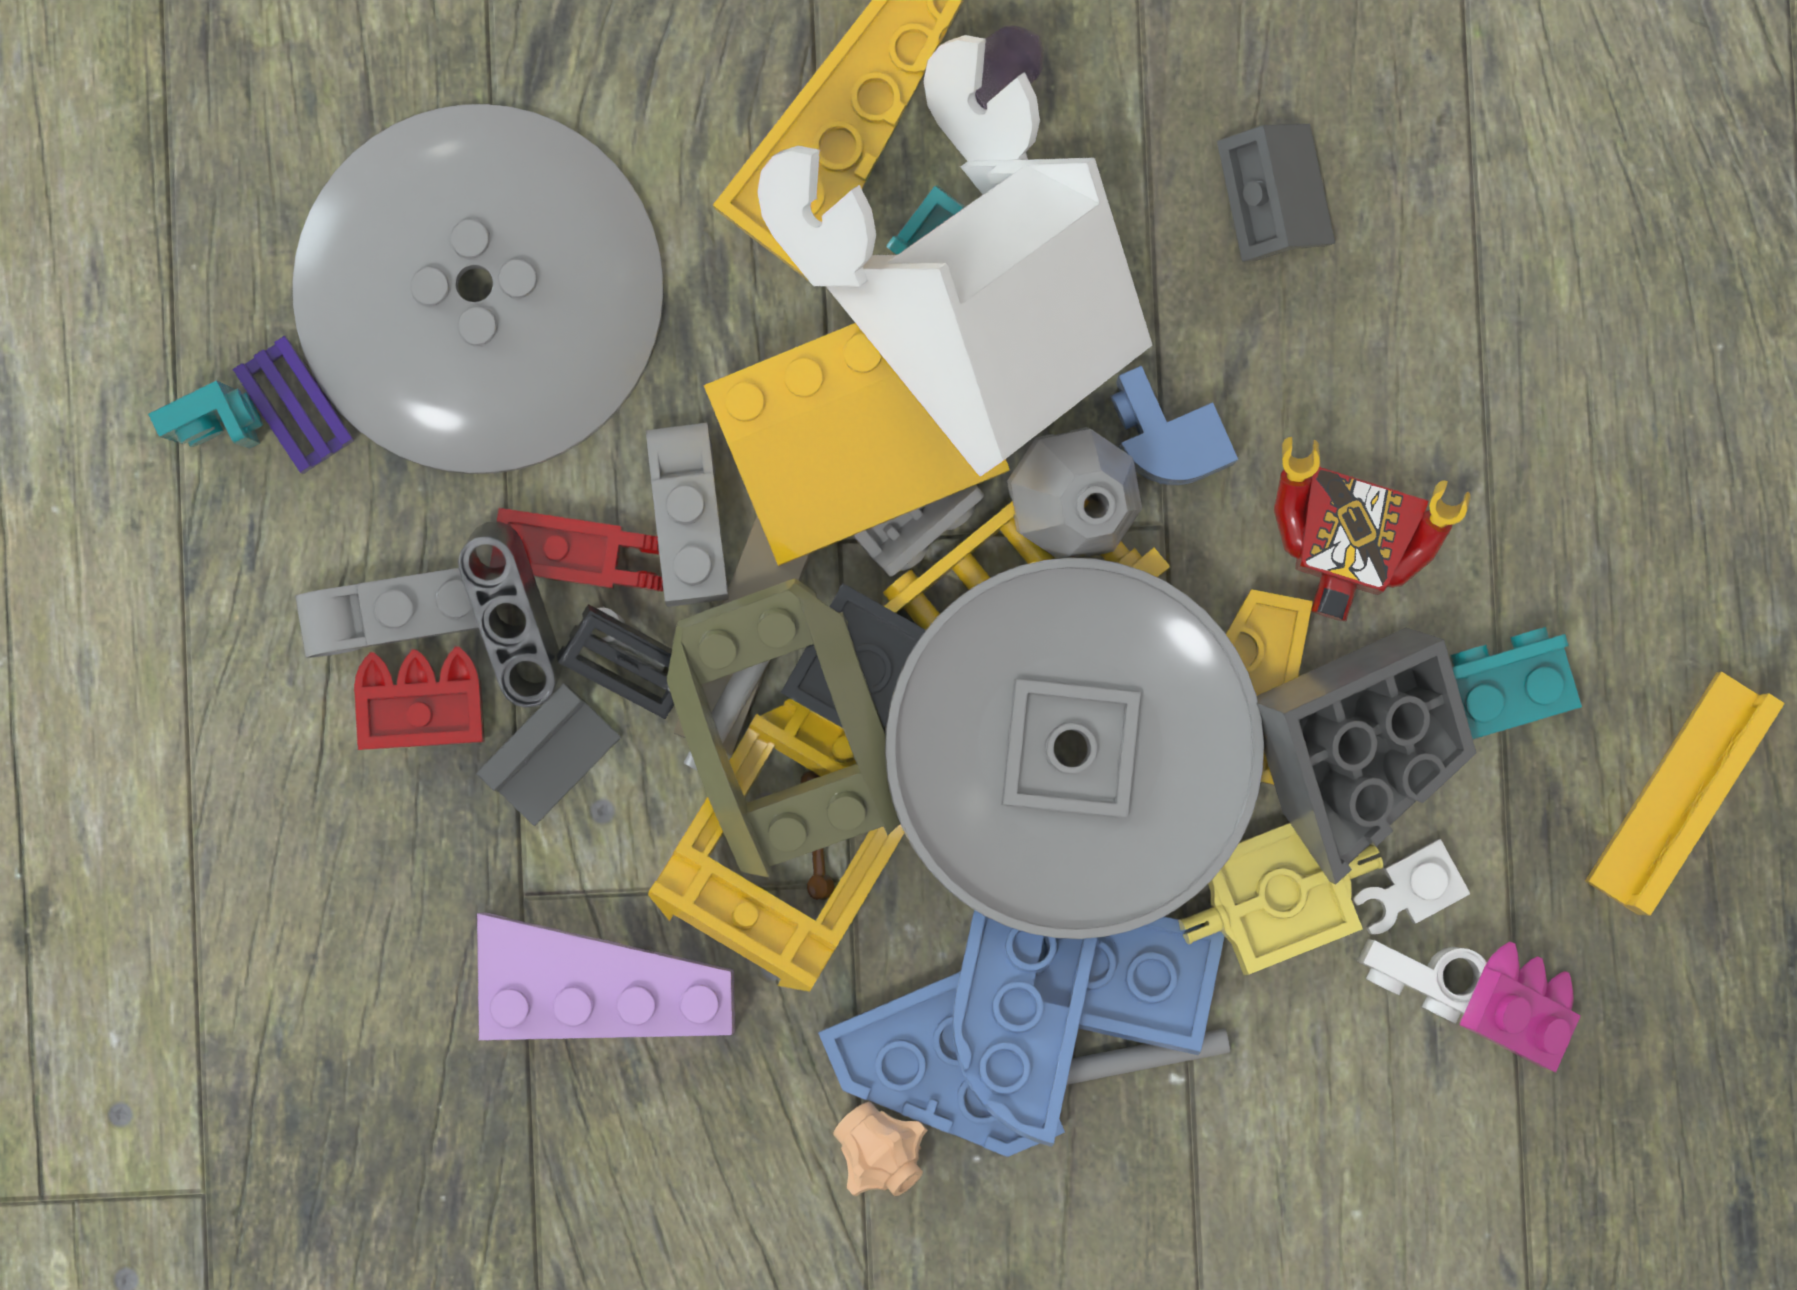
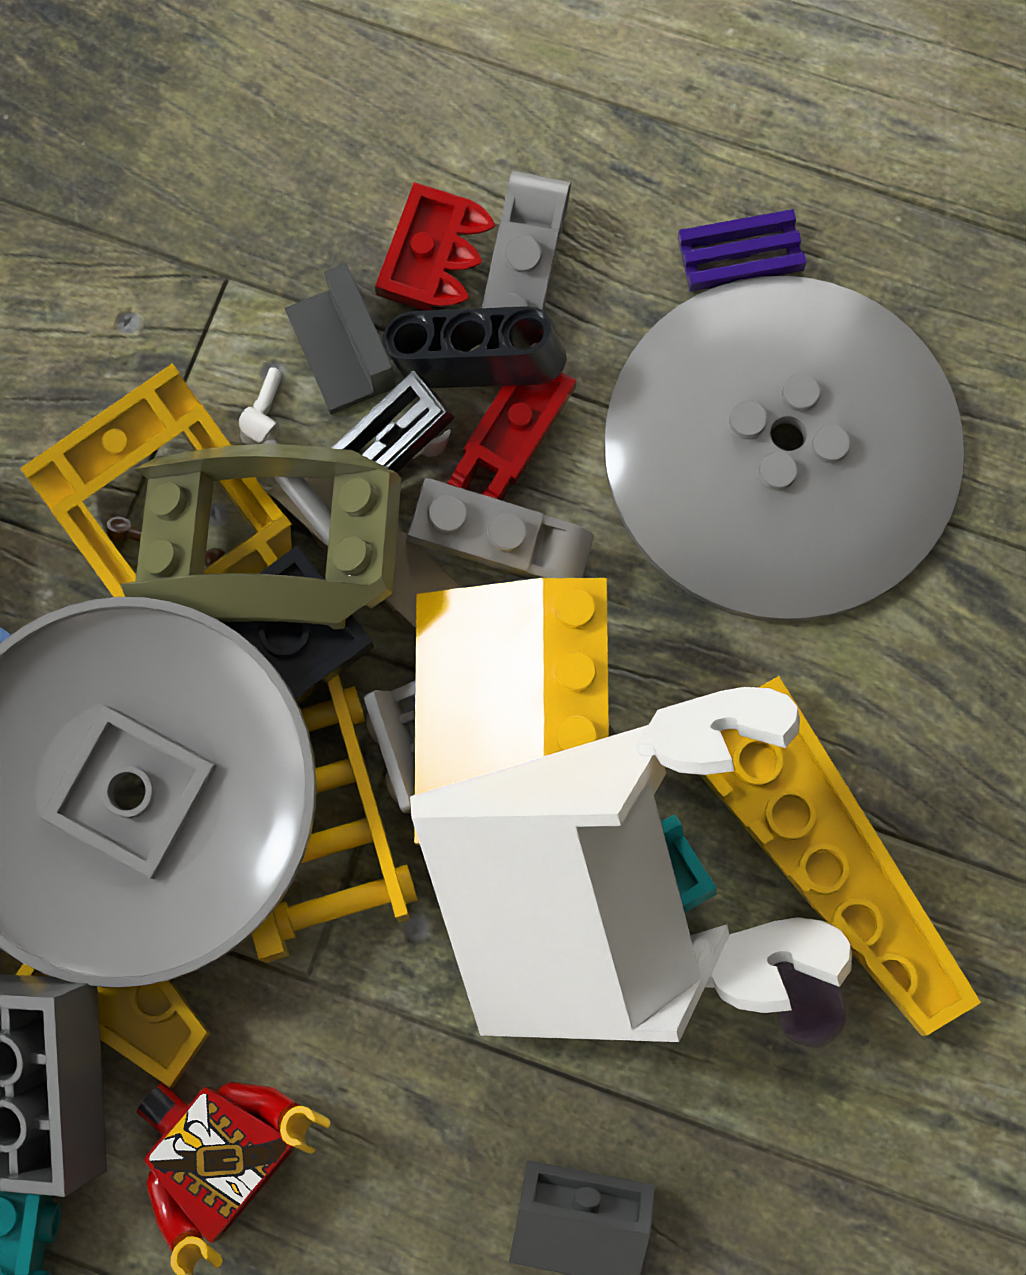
camera: 110 degrees right, 10 degrees down
(198, 416) = (755, 174): teal bracket -> none
(579, 986) = (118, 289): lavender wedge -> none
(668, 798) = (253, 422): none -> white hand
(1055, 481) = (364, 894): light grey cone -> none
(1172, 450) = (369, 1014): medium blue brick -> none

